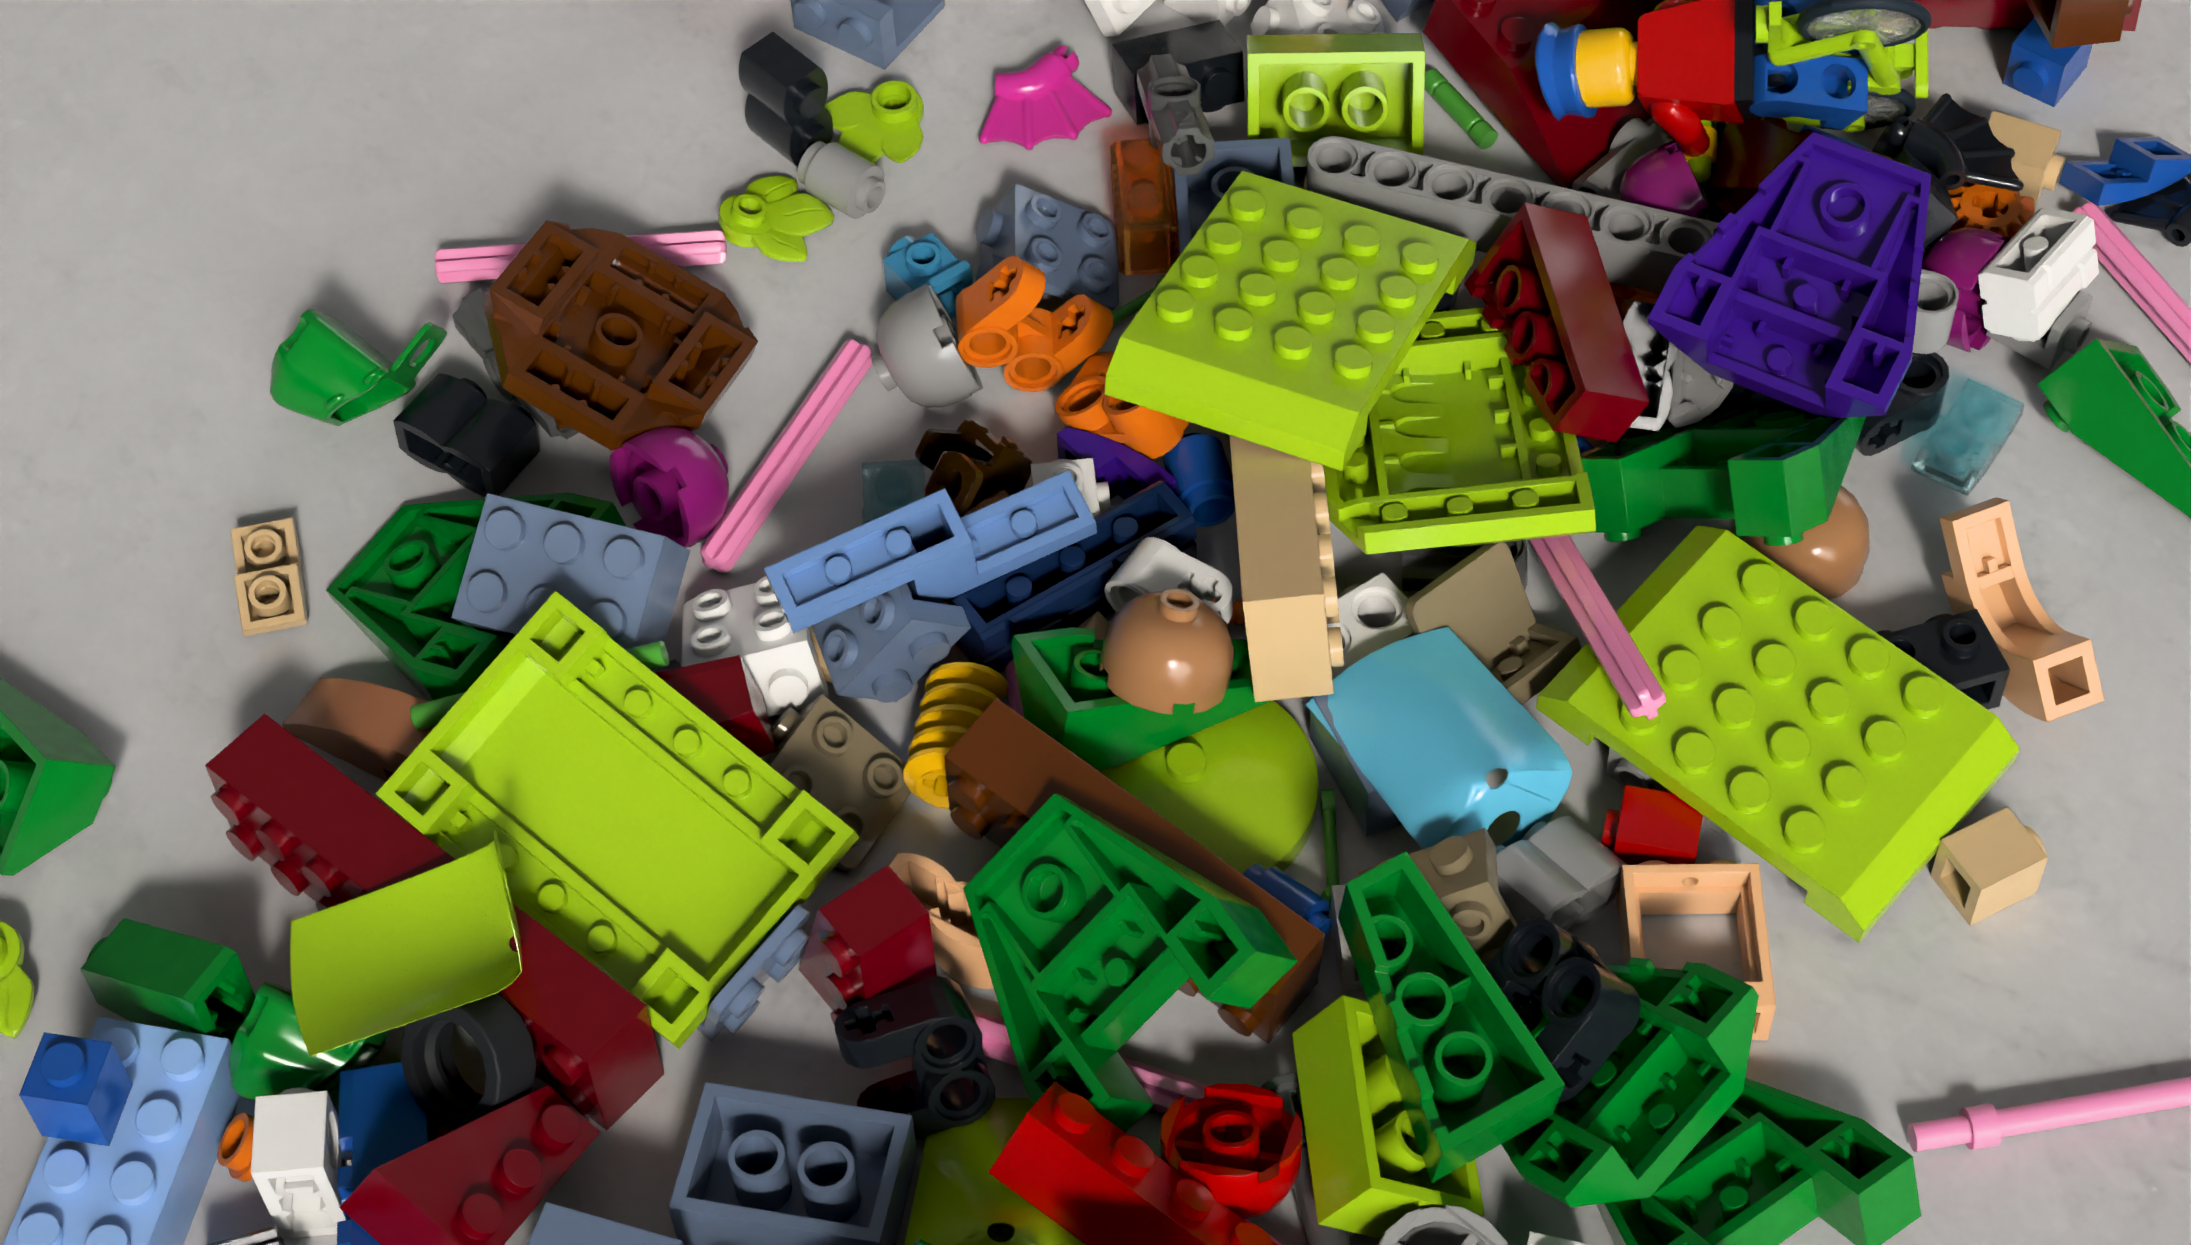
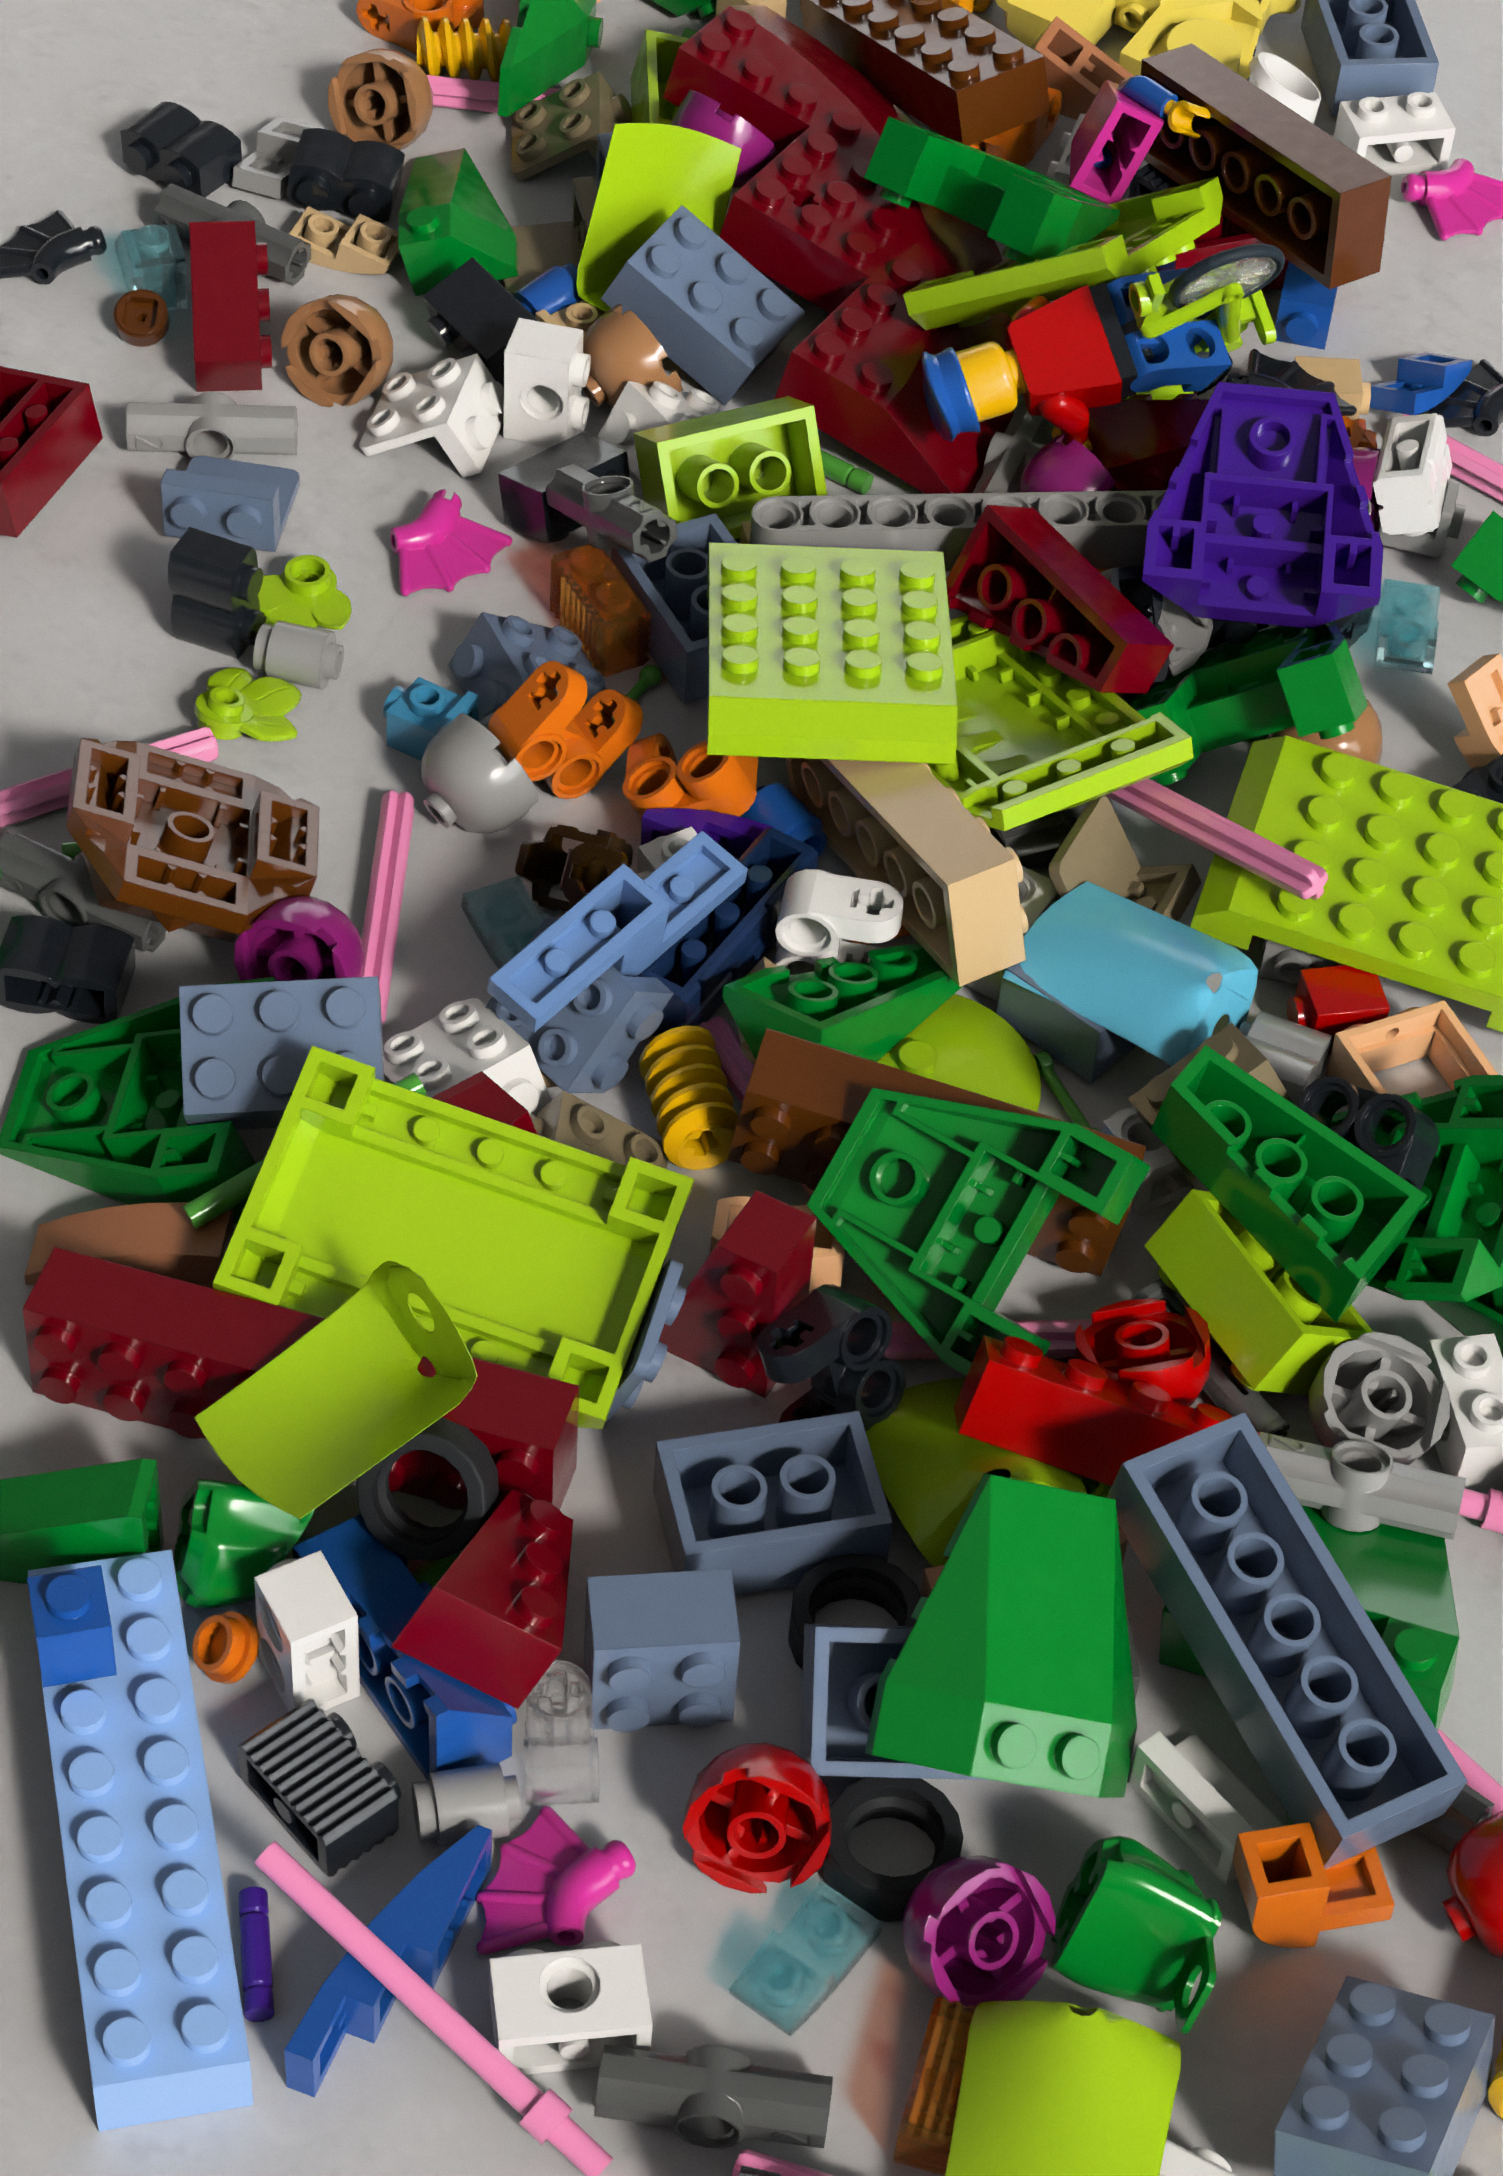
camera: 30 degrees left, 5 degrees down
(1168, 652) = (874, 957): medium nougat cylinder -> none

